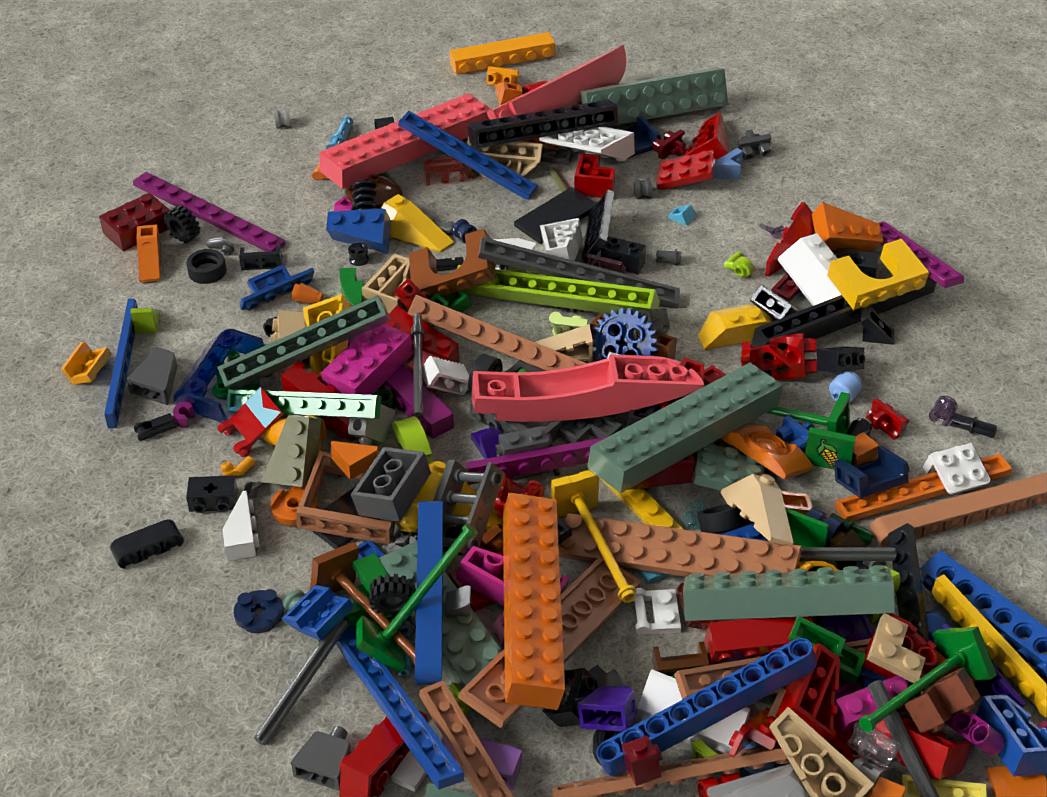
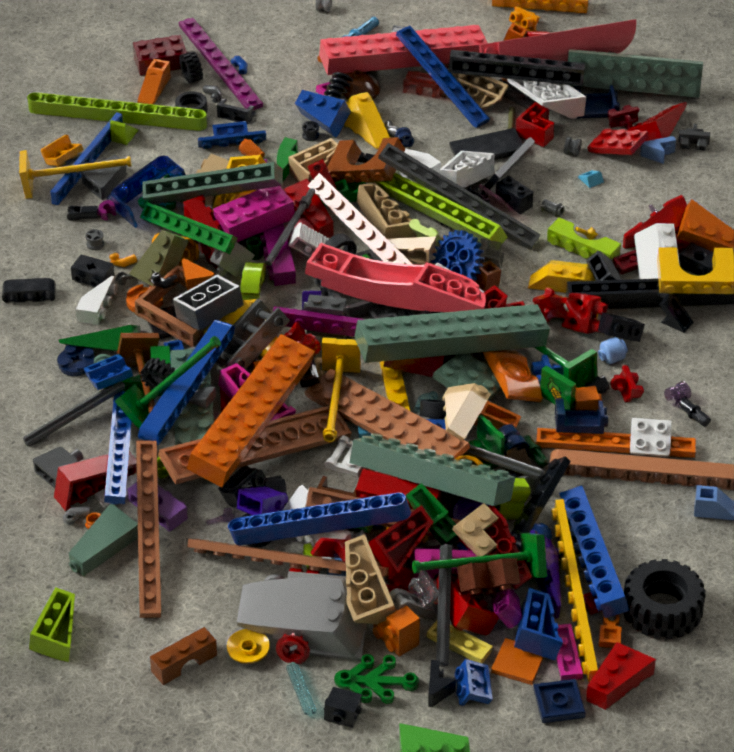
camera: 25 degrees right, 0 degrees up
(65, 402) = (27, 174): none -> yellow tile
(114, 299) = (105, 109): none -> lime beam
(190, 454) = (94, 239): none -> dark grey wheel
(233, 205) = (239, 61): none -> blue arm
(252, 421) = (148, 229): red flag -> none
(293, 568) = (102, 339): none -> green wedge
(309, 477) = (158, 281): none -> black arm
(505, 314) = (384, 212): none -> tan wedge
(567, 744) = (226, 517): none -> clear purple hand
(642, 760) = (253, 536): dark red brick -> none
(704, 281) = (563, 235): none -> lime arch
(725, 271) = (590, 233): none -> yellow hand
(741, 265) = (604, 230): lime plate -> none

